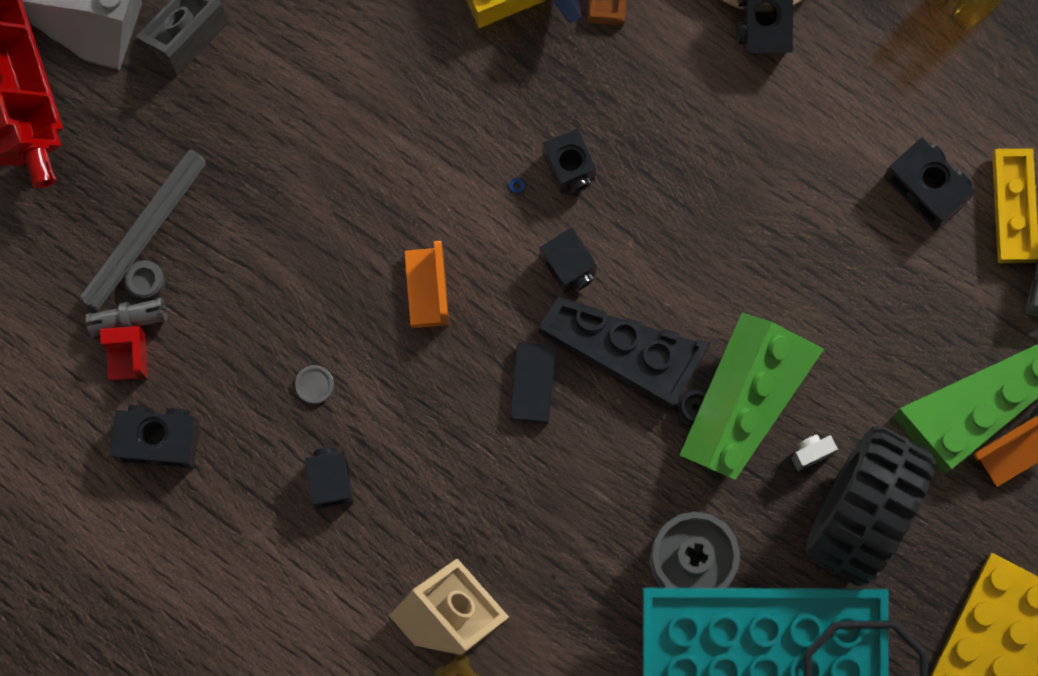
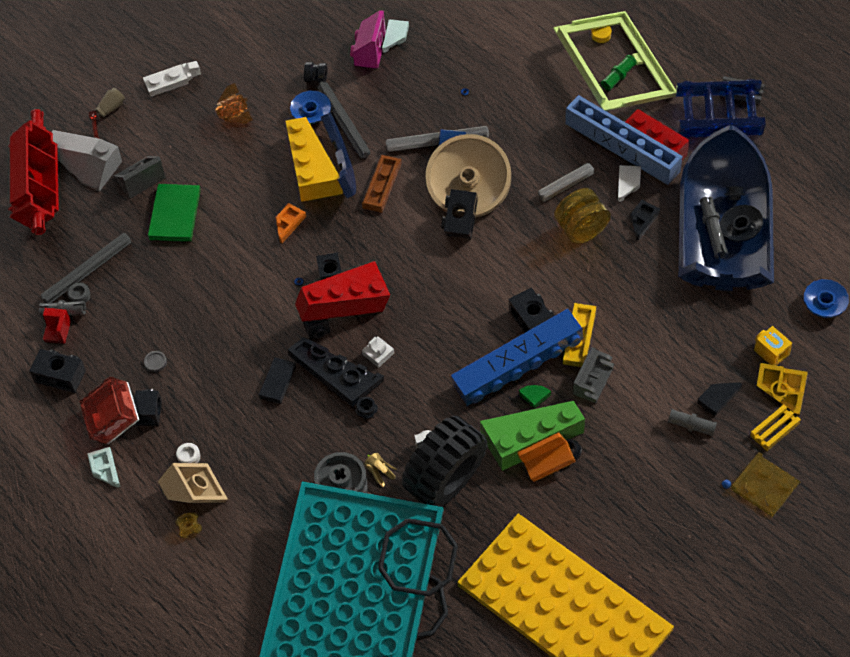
camera: 15 degrees right, 20 degrees down
(266, 91) = (174, 212): none -> green tile
(270, 503) = (109, 410): none -> clear red piece
(284, 598) = (103, 466): none -> light aqua tile
(420, 549) = (188, 453): none -> white tile
(427, 287) = (233, 321): orange panel -> none
(468, 72) = (288, 221): none -> orange tile
(617, 209) = (344, 294): none -> red wedge
(687, 297) = (378, 351): none -> white tile
(741, 510) = (376, 463): none -> pearl gold piece
(748, 393) = (396, 399): bright green wedge -> none
(928, 271) = (517, 357): none -> blue brick
(965, 329) = (534, 394): none -> green tile

